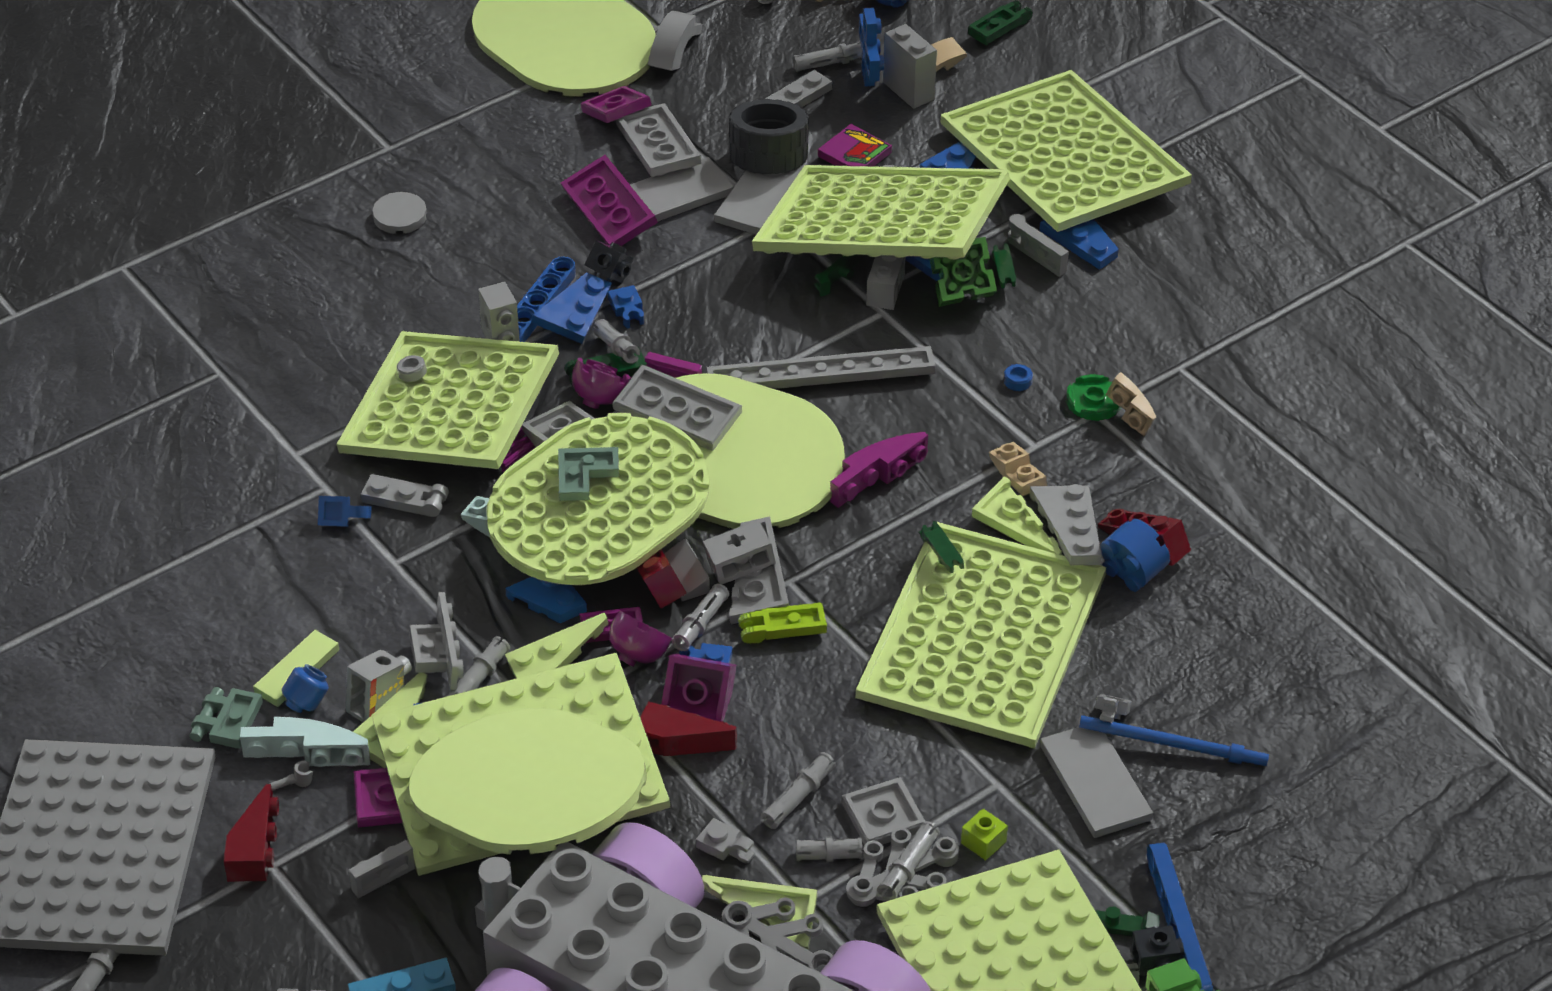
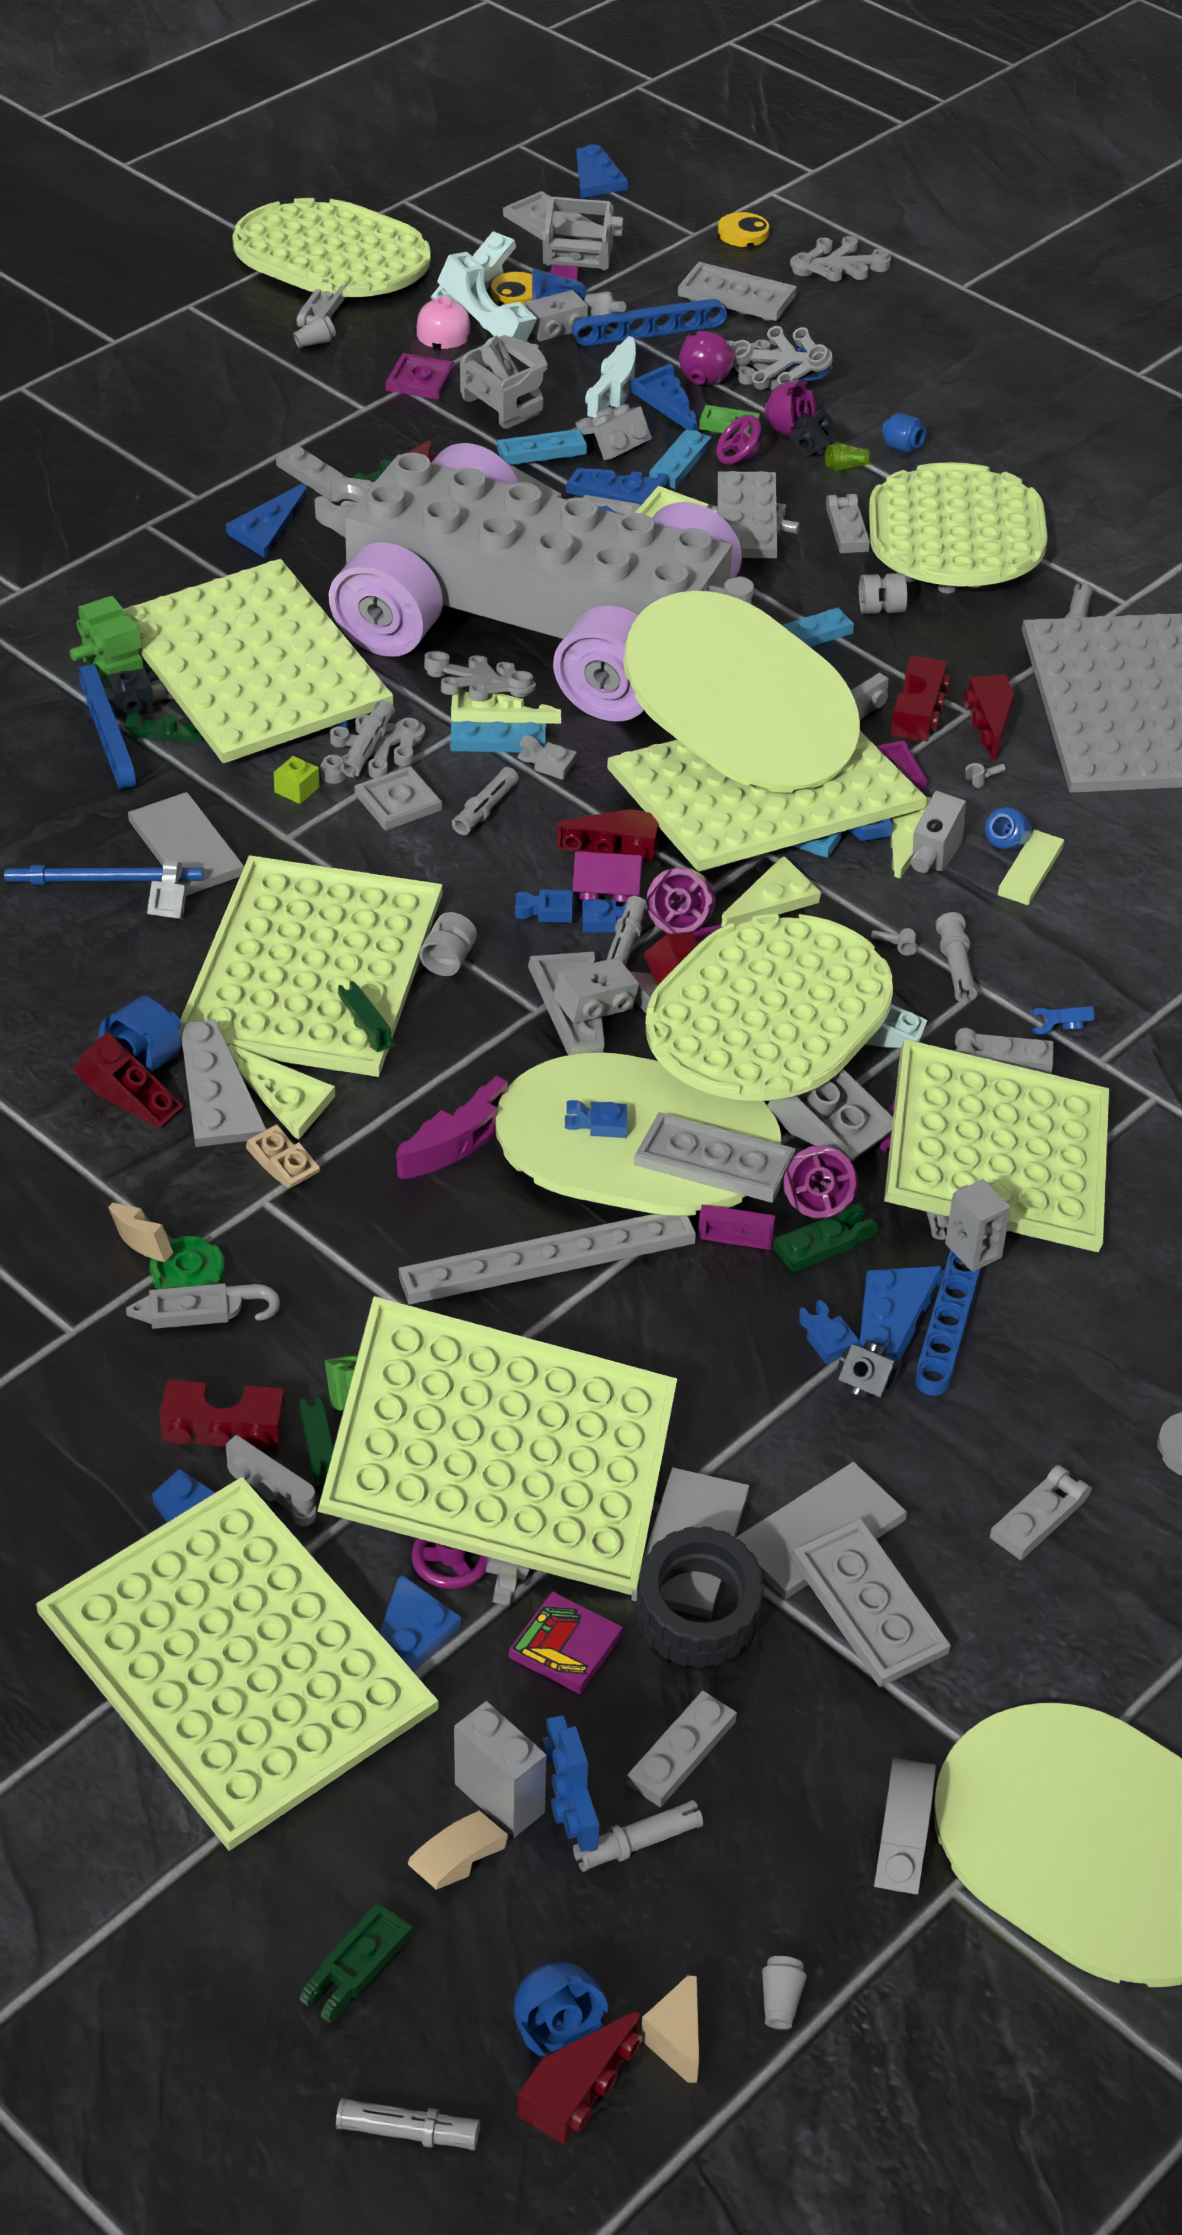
camera: 170 degrees right, 0 degrees up
(235, 712) = (1066, 814): sand green plate -> none
(297, 737) = (988, 793): light aqua slope -> none
(330, 844) = (921, 698): none -> dark red arch
(405, 587) = (955, 946): none -> light grey pin
(411, 368) = (1061, 1172): light grey tile -> none
(435, 645) = (895, 878): light grey bracket -> none
(450, 598) = (905, 940): none -> light grey hand
(483, 666) = (839, 878): light grey pin -> none
(524, 186) = (1040, 1513): none -> light grey plate
(579, 465) = (797, 1004): sand green plate -> none
(609, 202) = (905, 1475): magenta plate -> none
(615, 104) = (957, 1671): magenta tile -> none
(619, 343) = (797, 1209): light grey pin -> none
(759, 444) = (602, 1118): none -> blue plate
(759, 665) = (549, 906): none -> blue plate
(772, 872) = (493, 736): none -> dark azure plate
(783, 622) = (514, 953): lime hinge -> none
(828, 849) = (446, 758): light grey pin -> none
(859, 626) = (448, 944): none -> light grey wheel
(1018, 377) = (289, 1284): blue tile -> none
(1051, 279) = (190, 1419): none -> dark red arch
(1084, 362) = (200, 1304): none -> light grey plate

